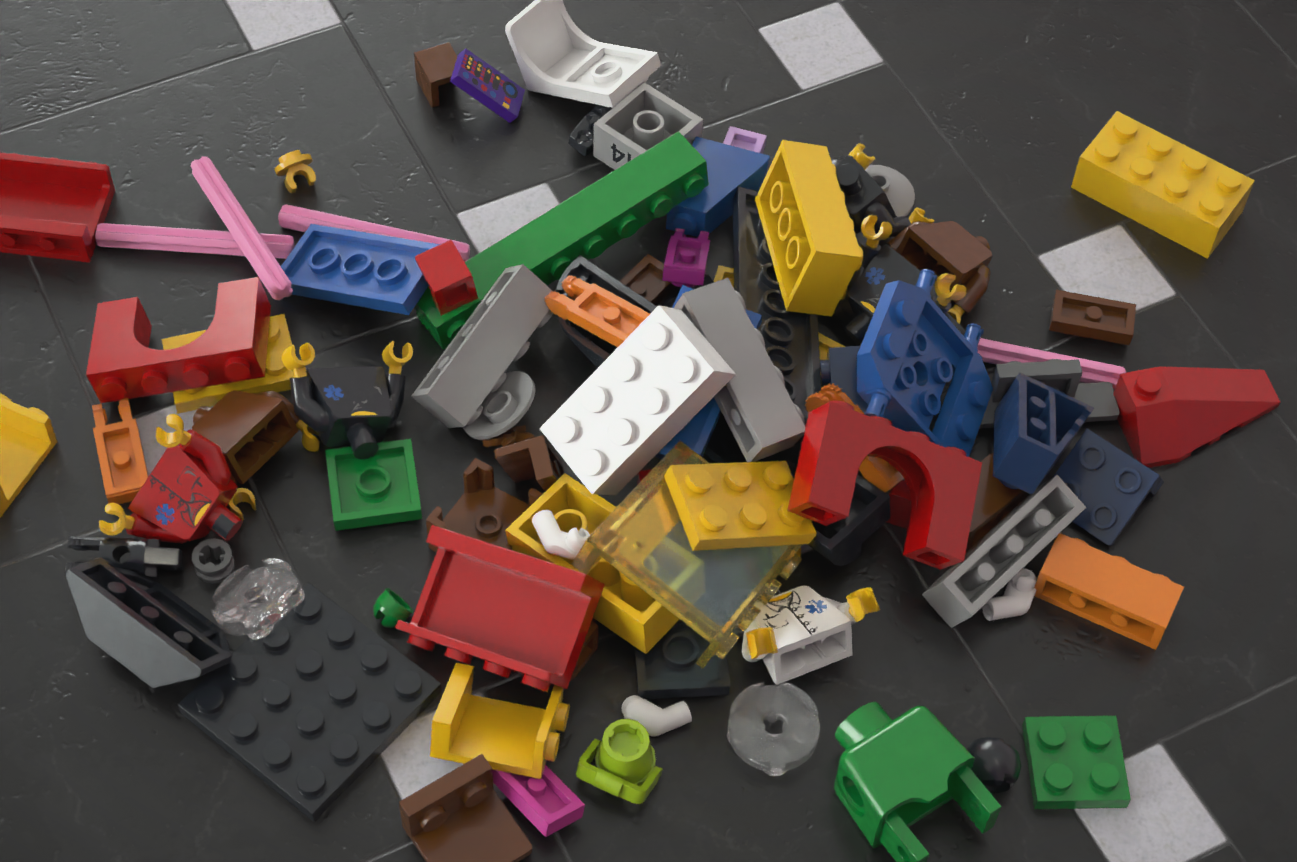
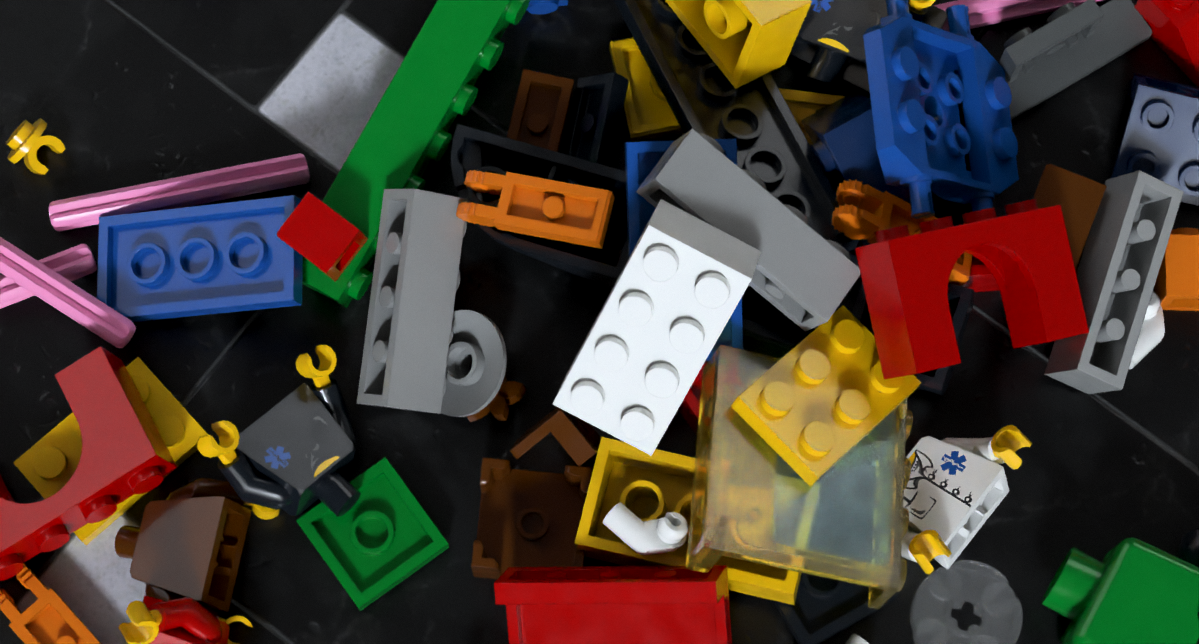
camera: 25 degrees left, 20 degrees up
(686, 259) = (578, 61): magenta hinge -> none
(1033, 432) = (1087, 123): dark blue wedge -> none

